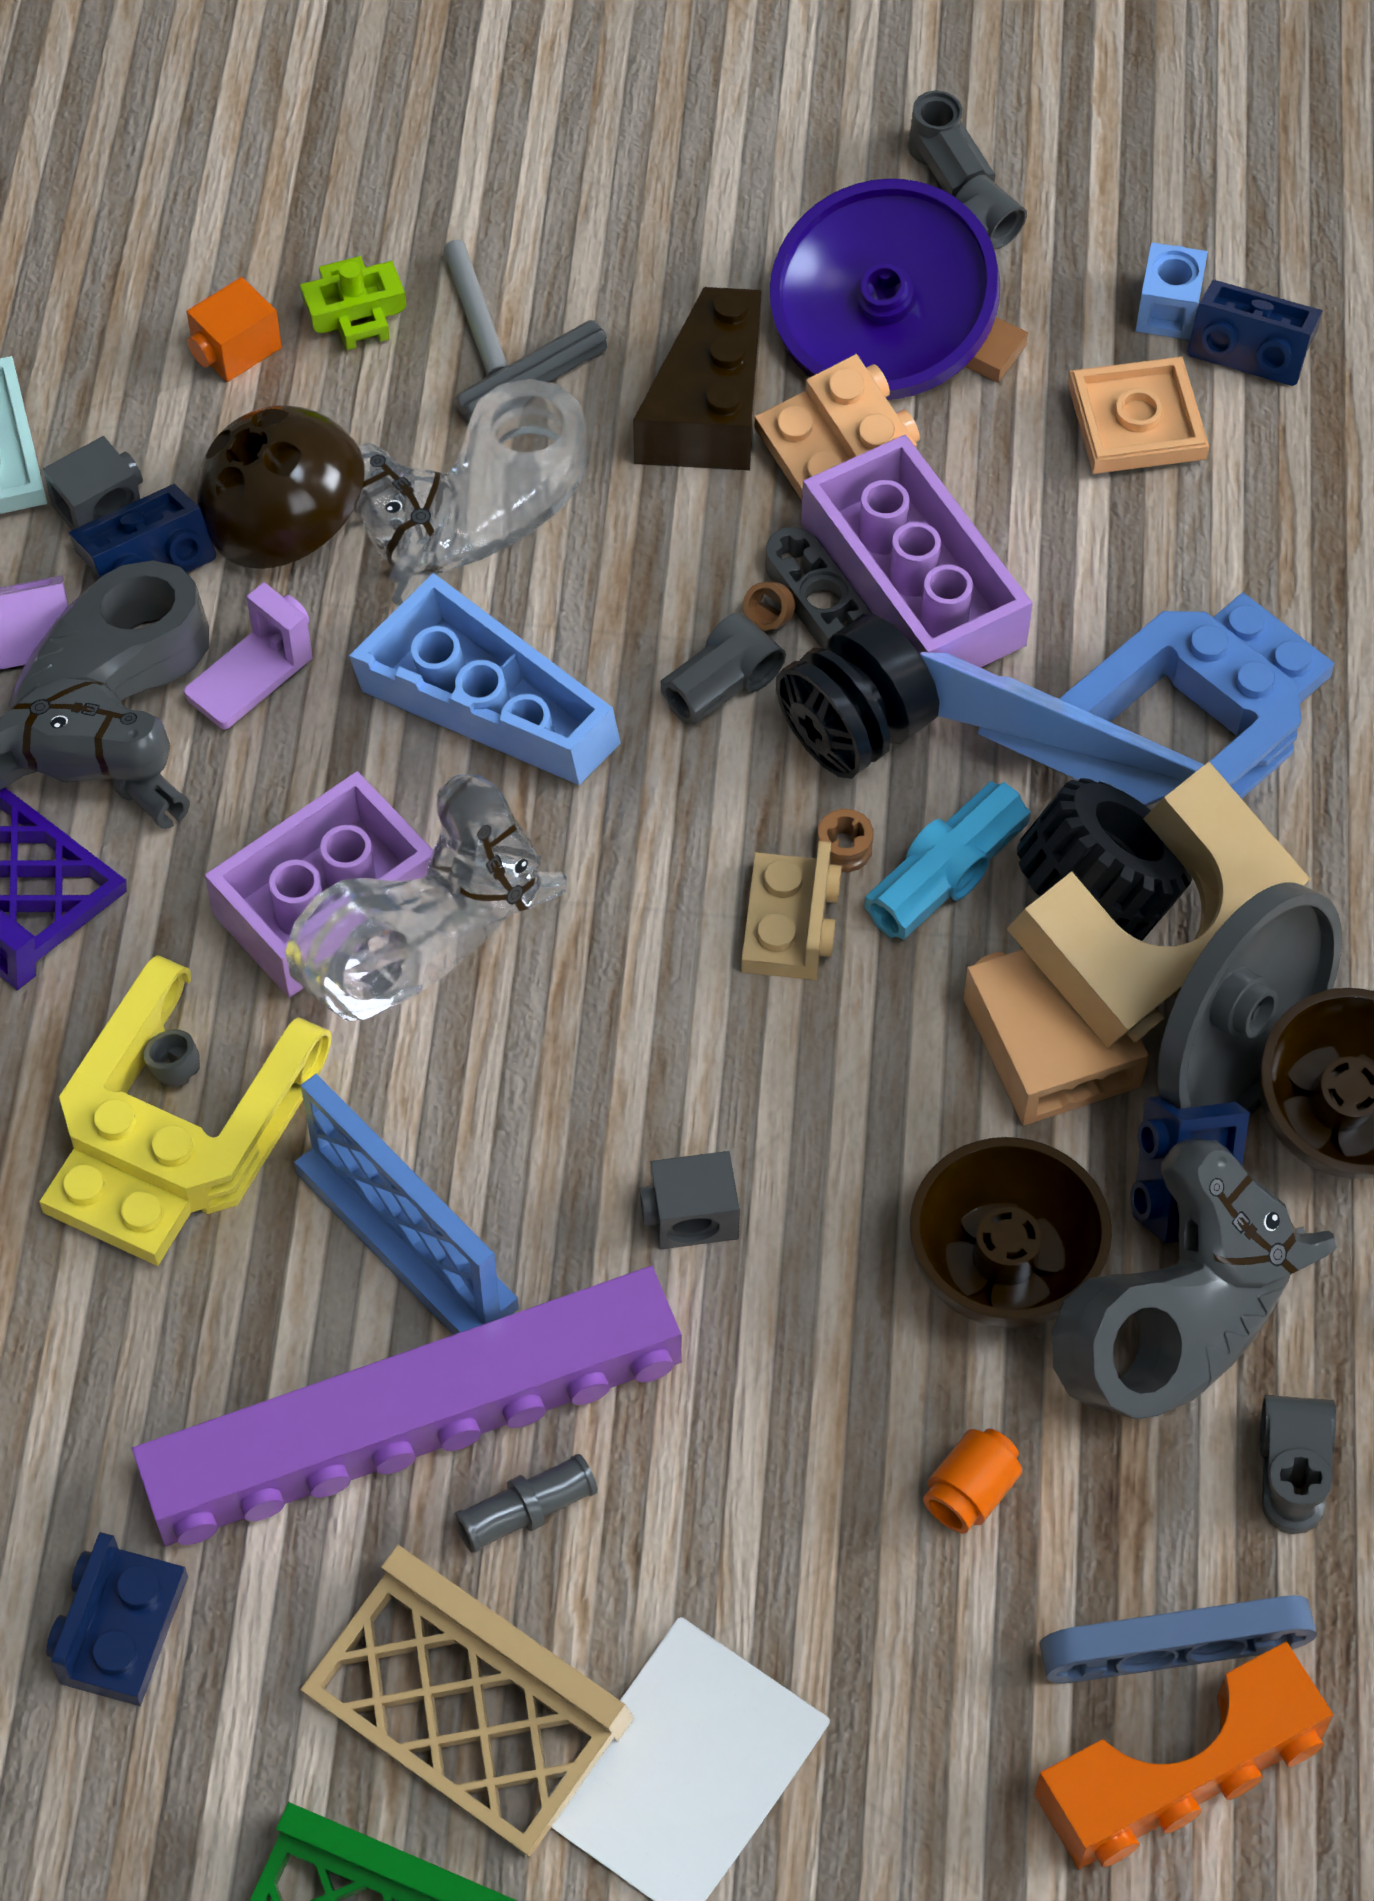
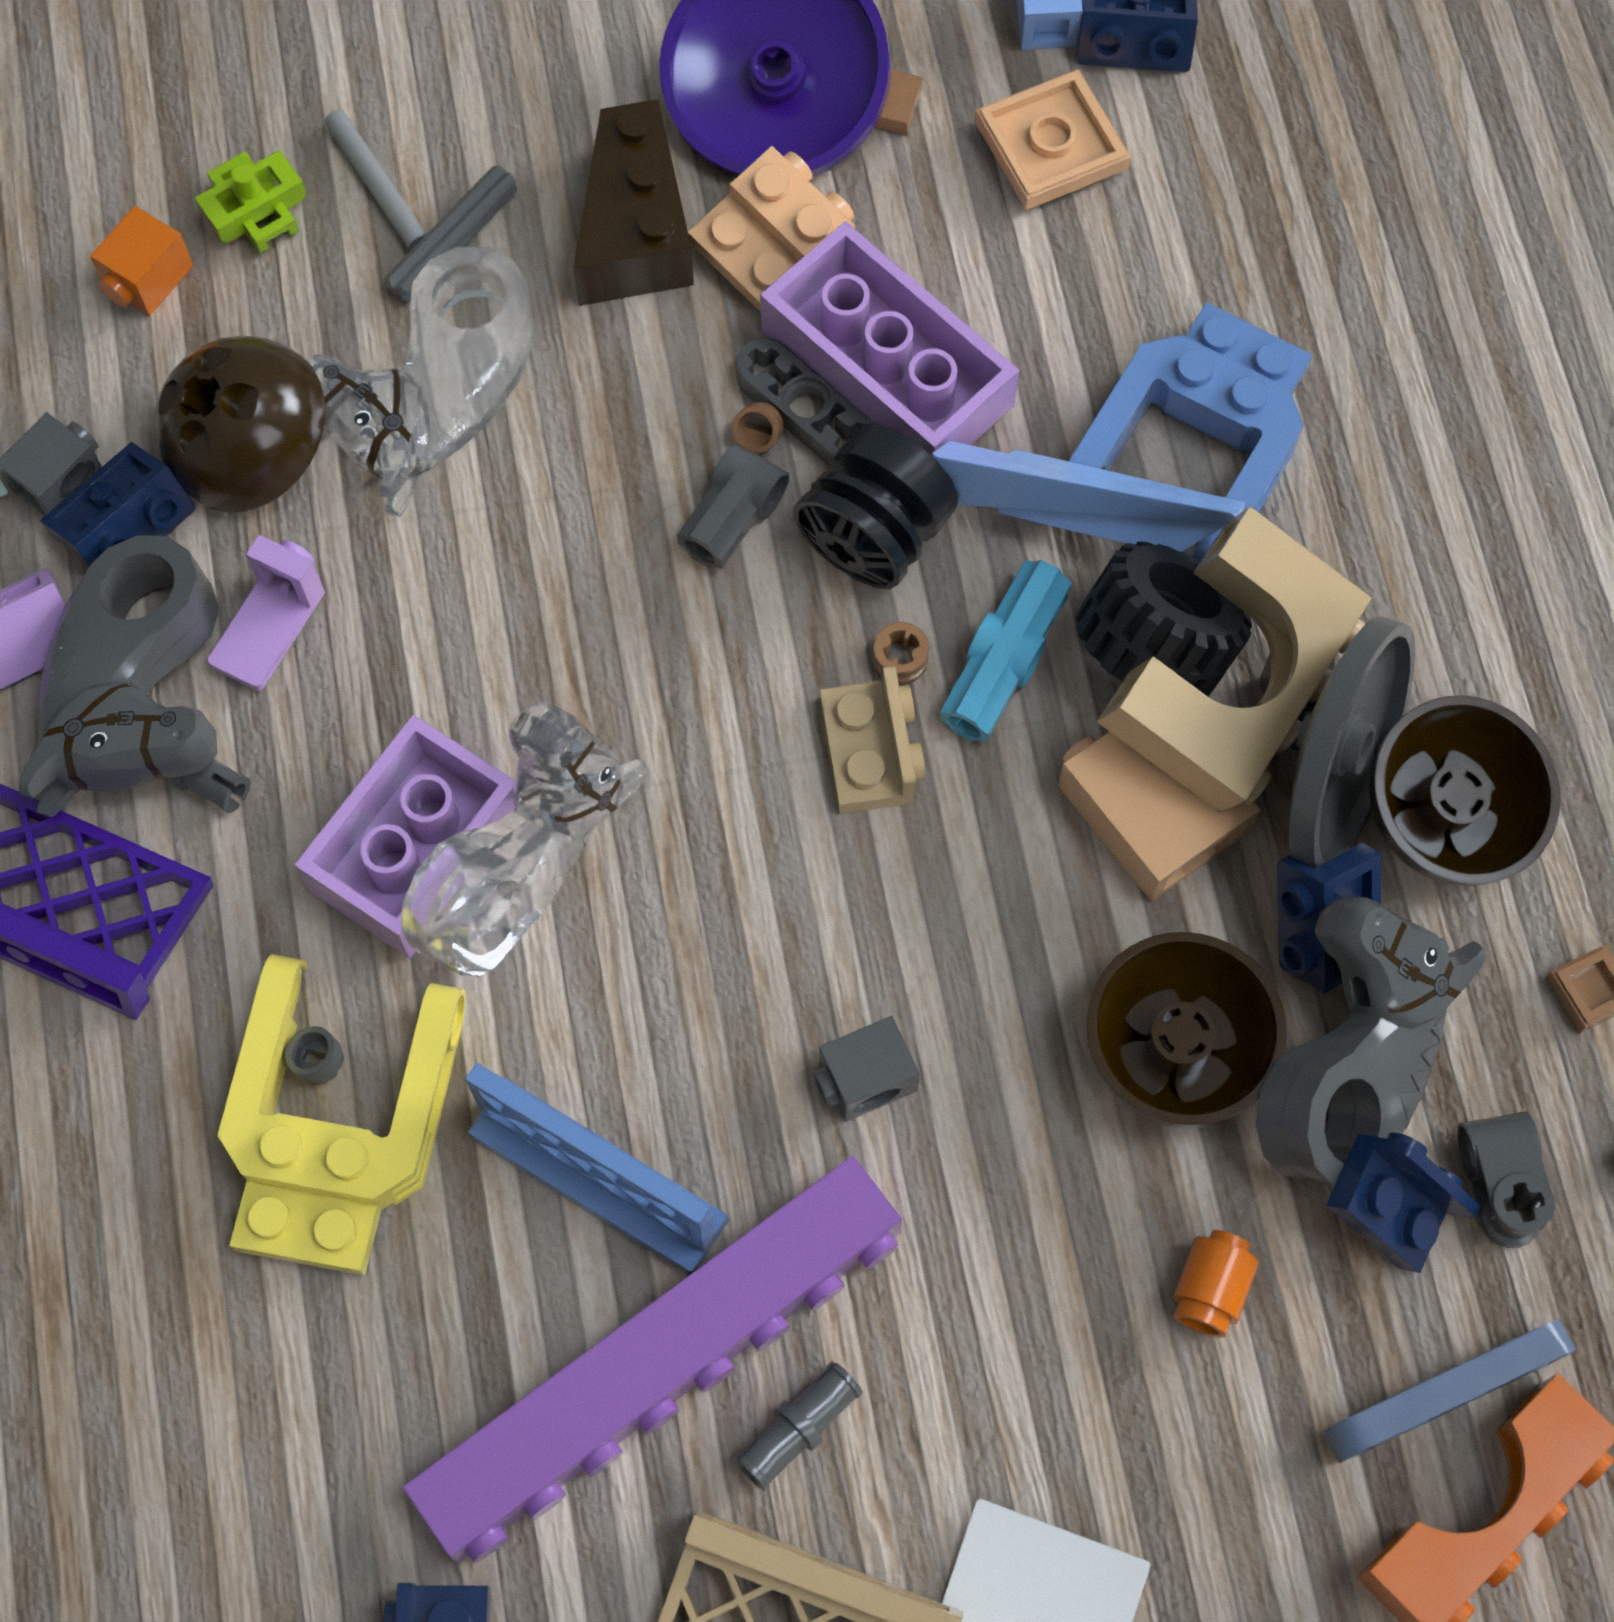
camera: 15 degrees left, 10 degrees up
(485, 682) = (502, 580): light blue wedge -> none
(1176, 1441) = (1397, 1197): none -> dark blue bracket

